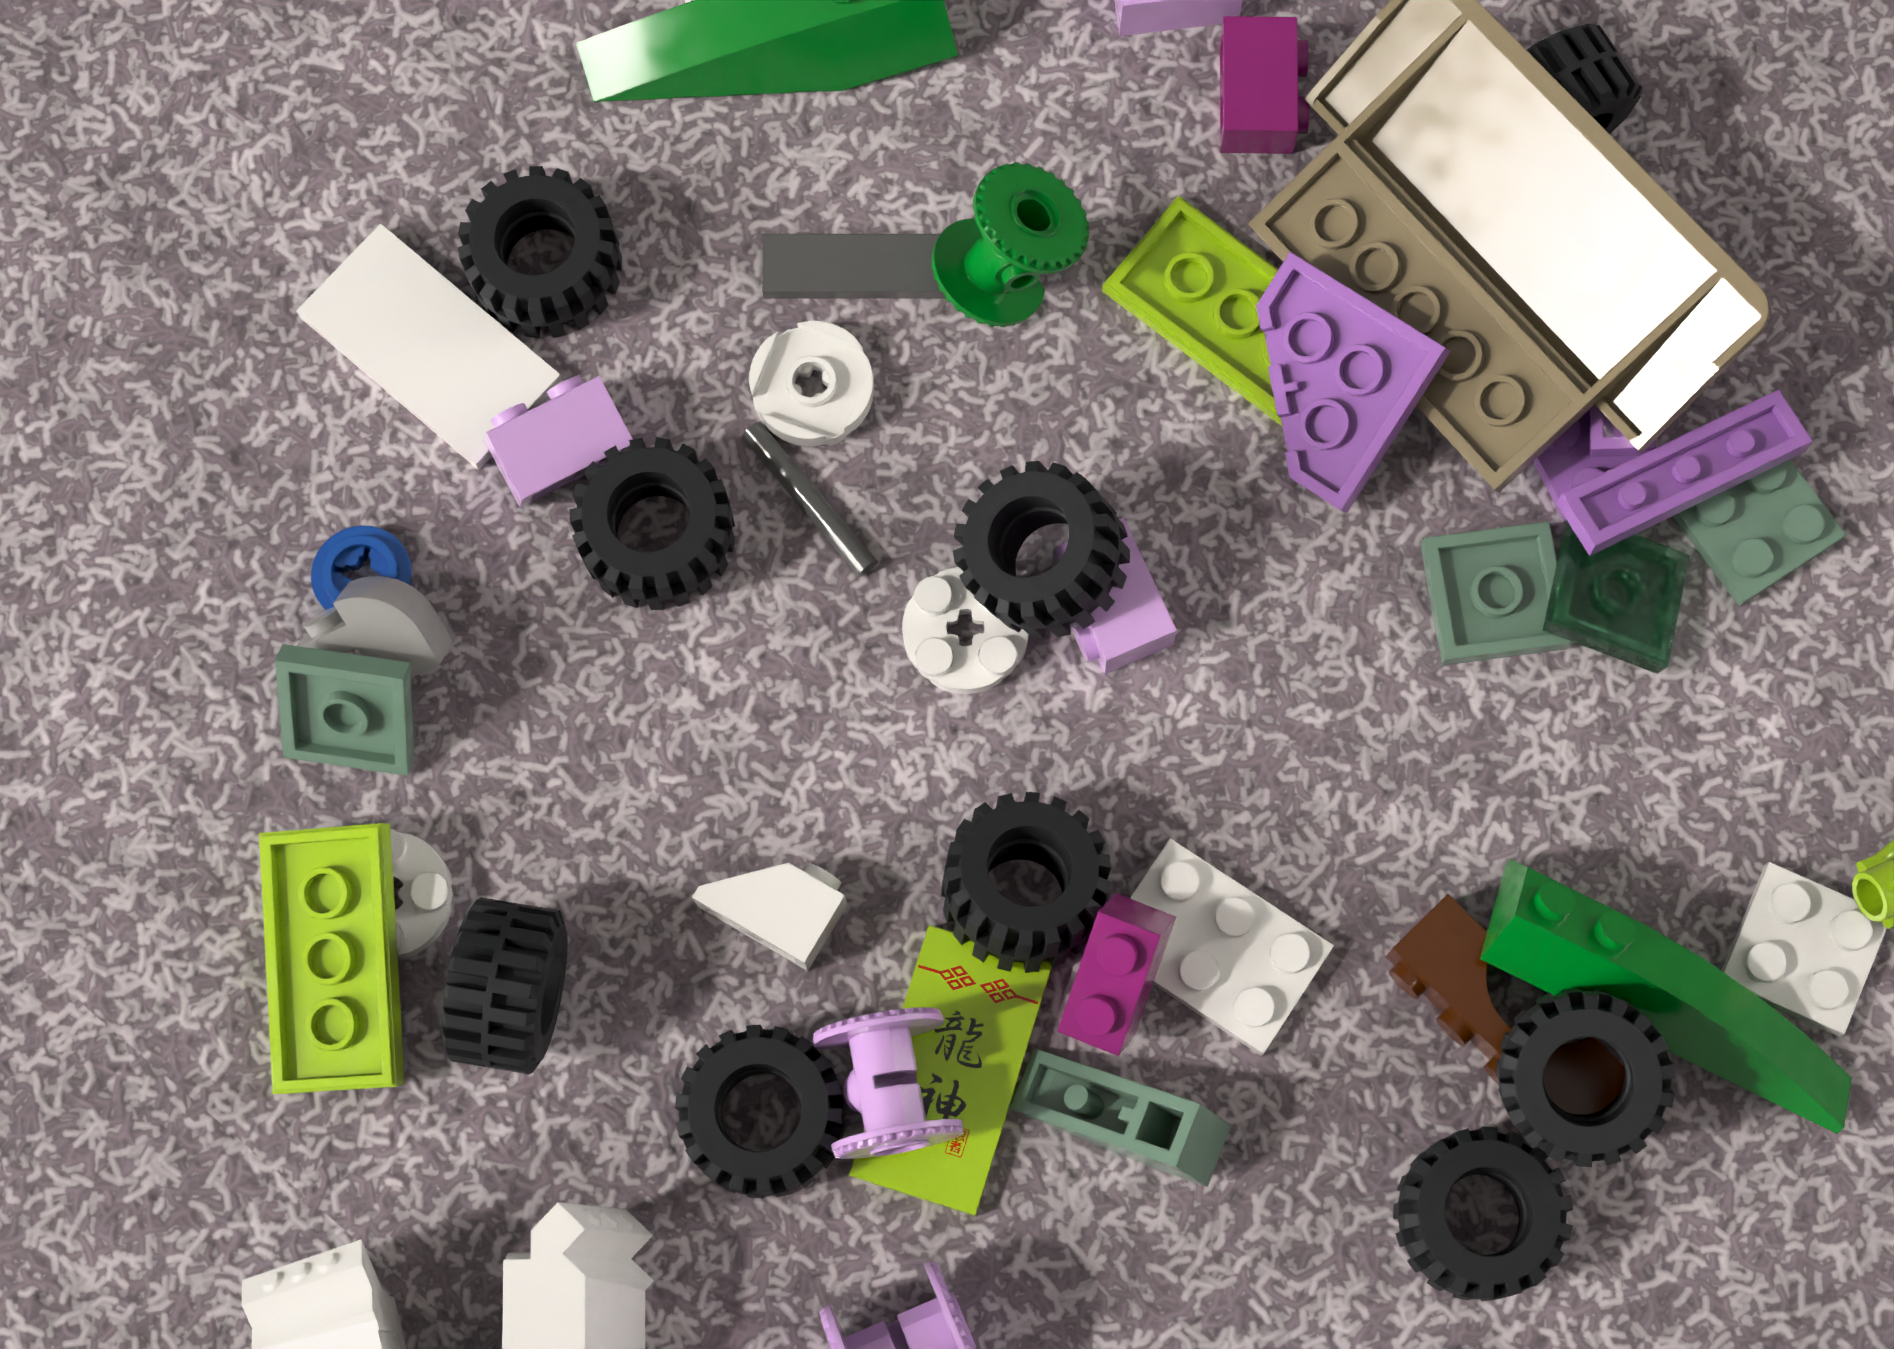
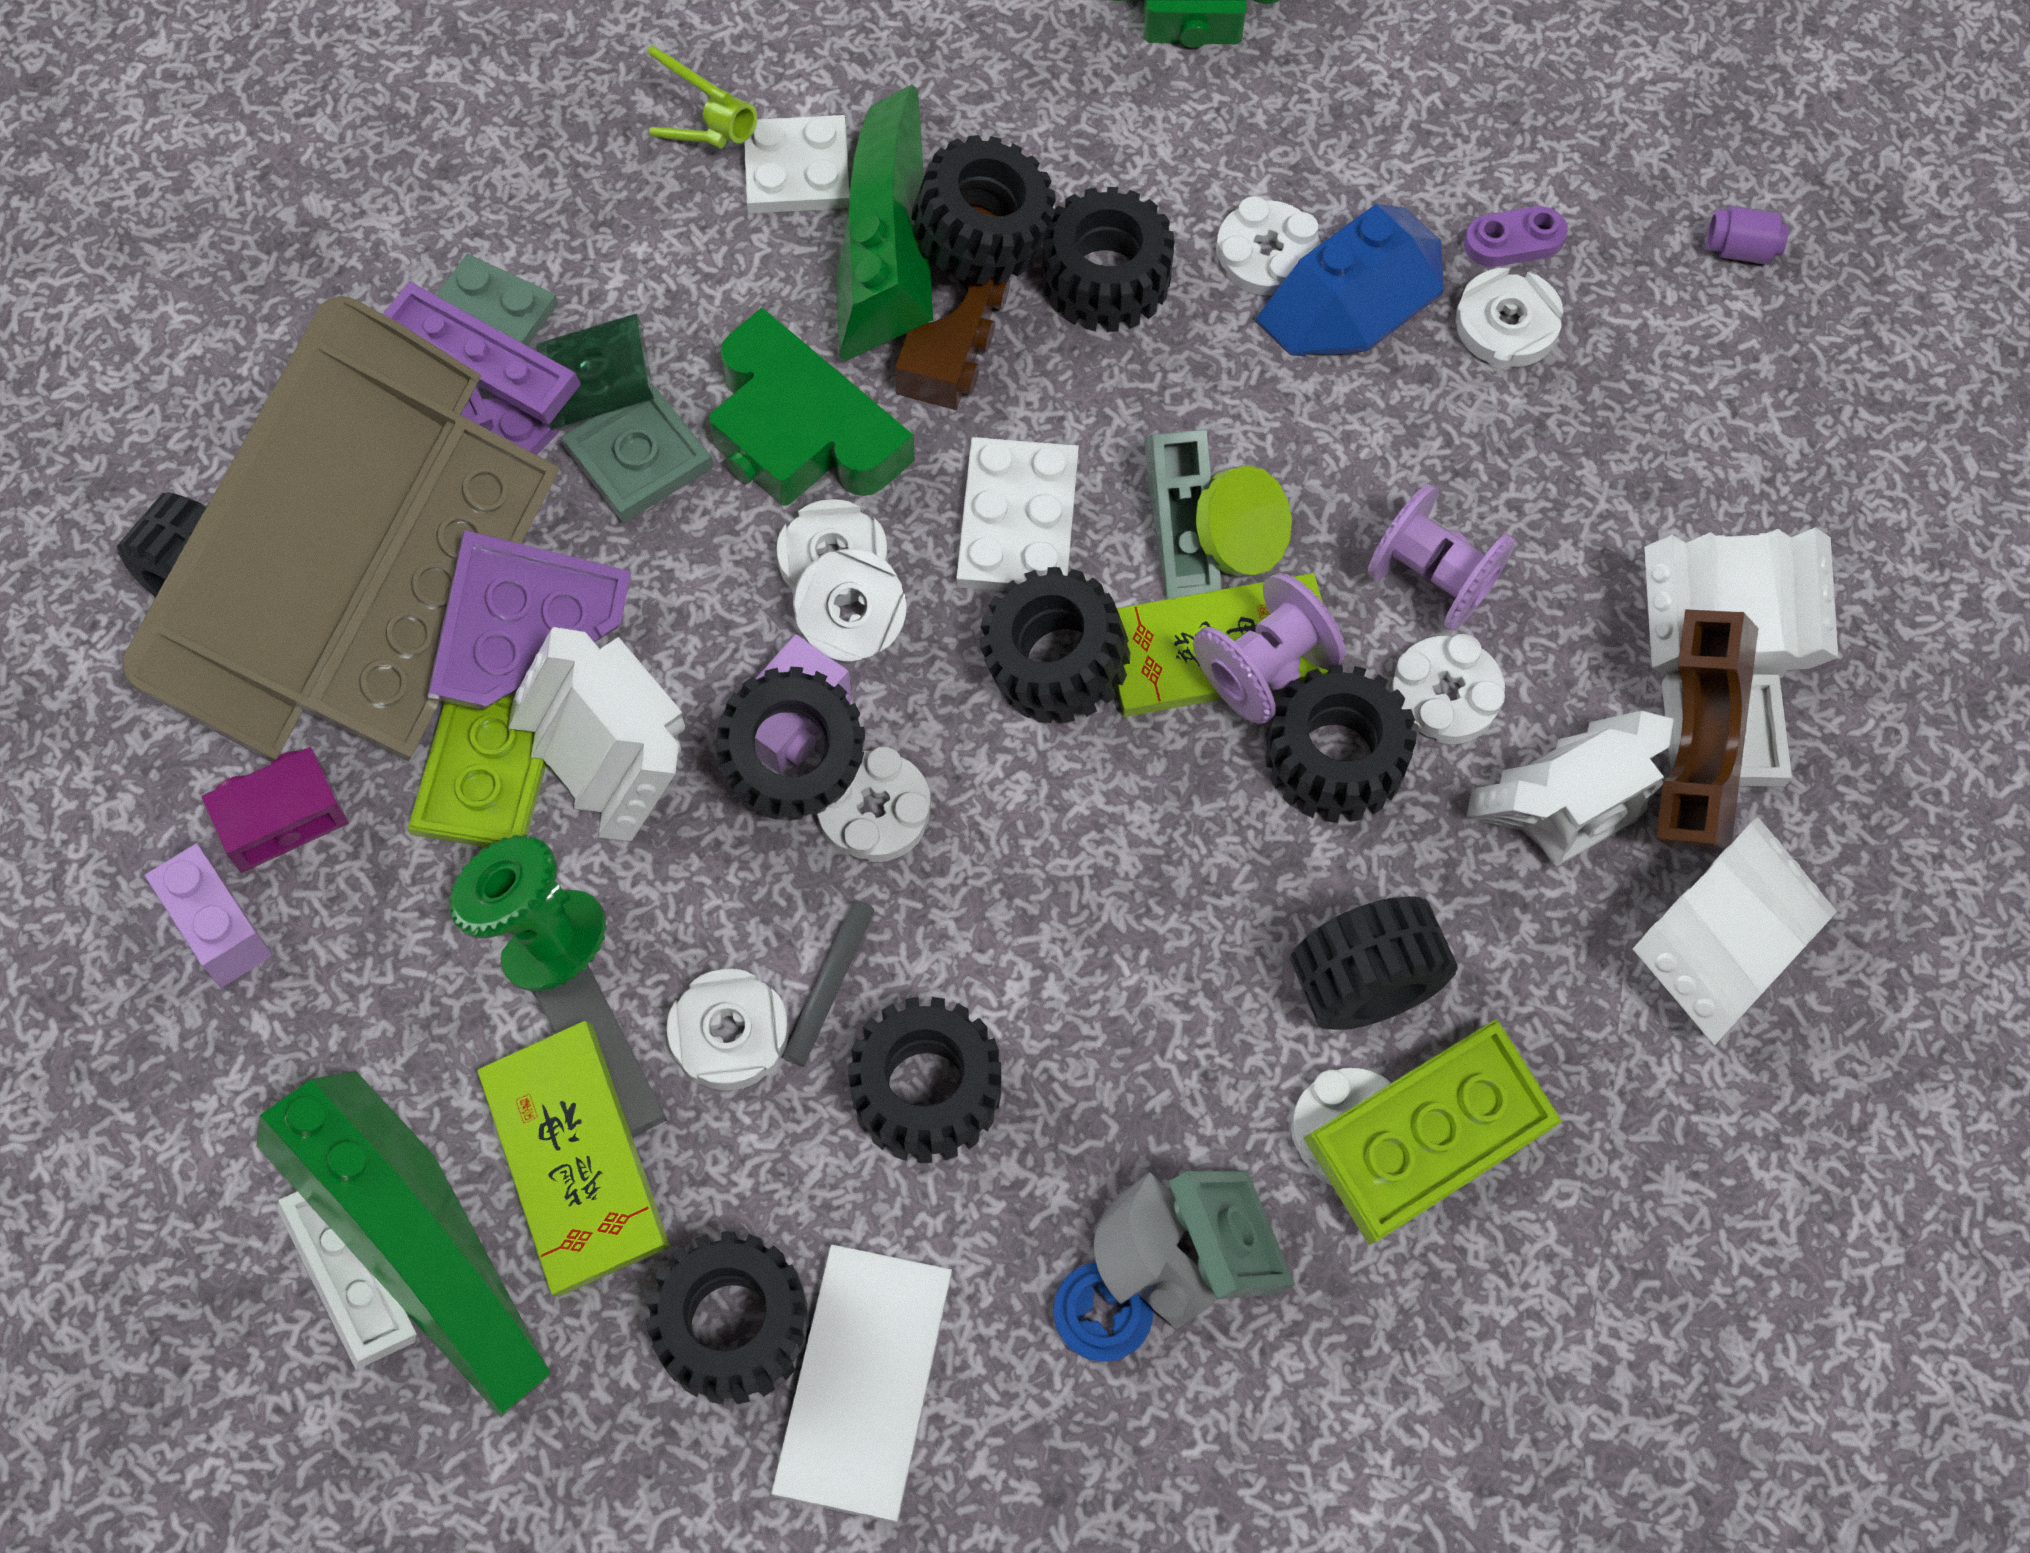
camera: 125 degrees left, 10 degrees down
(556, 439) = (895, 1200): lavender brick -> none
(767, 195) = (573, 1159): none -> lime tile
(778, 908) = (1179, 816): white slope -> none
(792, 1307) = (1459, 661): none -> white plate
(1066, 1167) = (1244, 521): none -> lime tile
(1116, 974) = (1096, 541): magenta brick -> none
(1168, 402) = (600, 727): none -> white slope
(1215, 721) = (879, 592): none -> white plate
(1302, 715) = (826, 524): none -> white plate
(1450, 773) = (800, 418): none -> green brick

